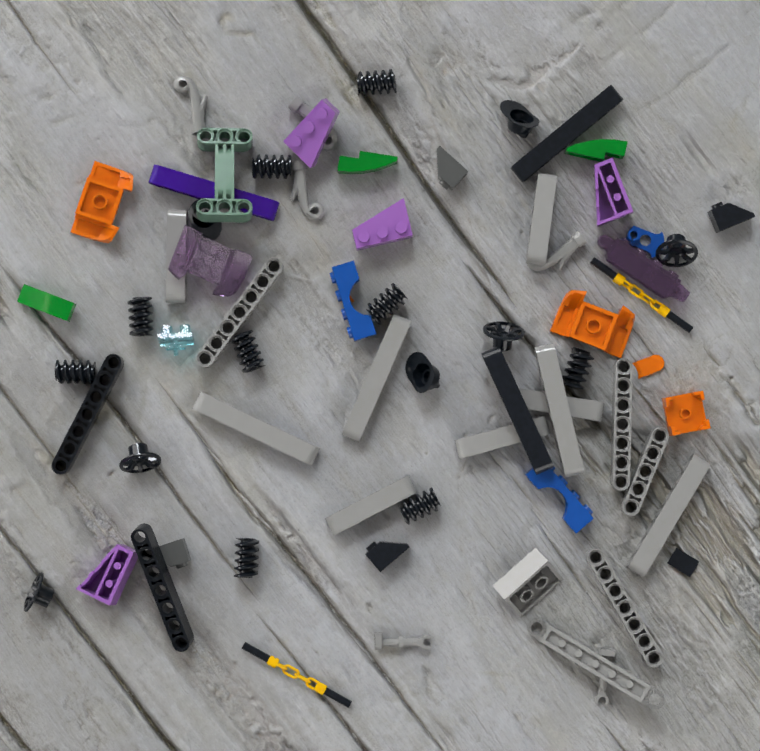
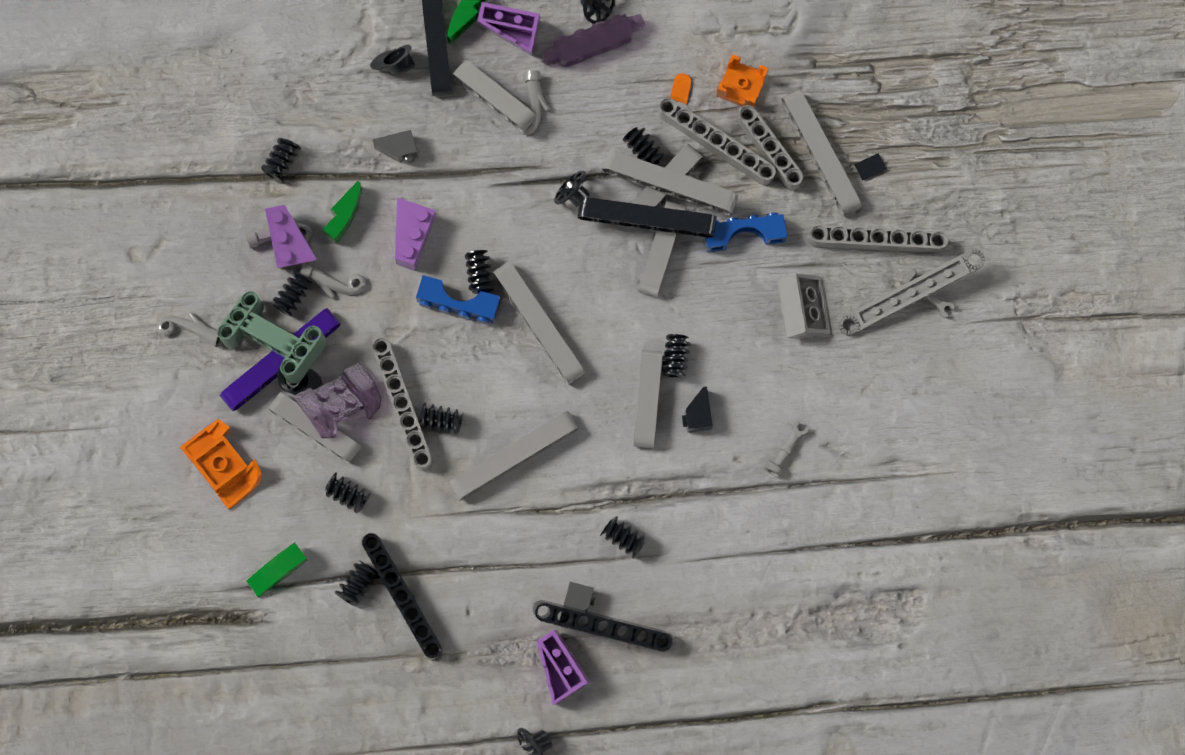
camera: 60 degrees left, 10 degrees down
(138, 457) = (471, 574): black wheel -> none
(176, 341) = (388, 476): clear light blue hips -> none
(319, 688) = (782, 547): piece -> none
(421, 372) = (559, 280): black piece -> none
(593, 324) = (613, 111): orange piece -> none
(655, 240) = (577, 16): blue piece -> none
(662, 310) = (640, 47): piece -> none

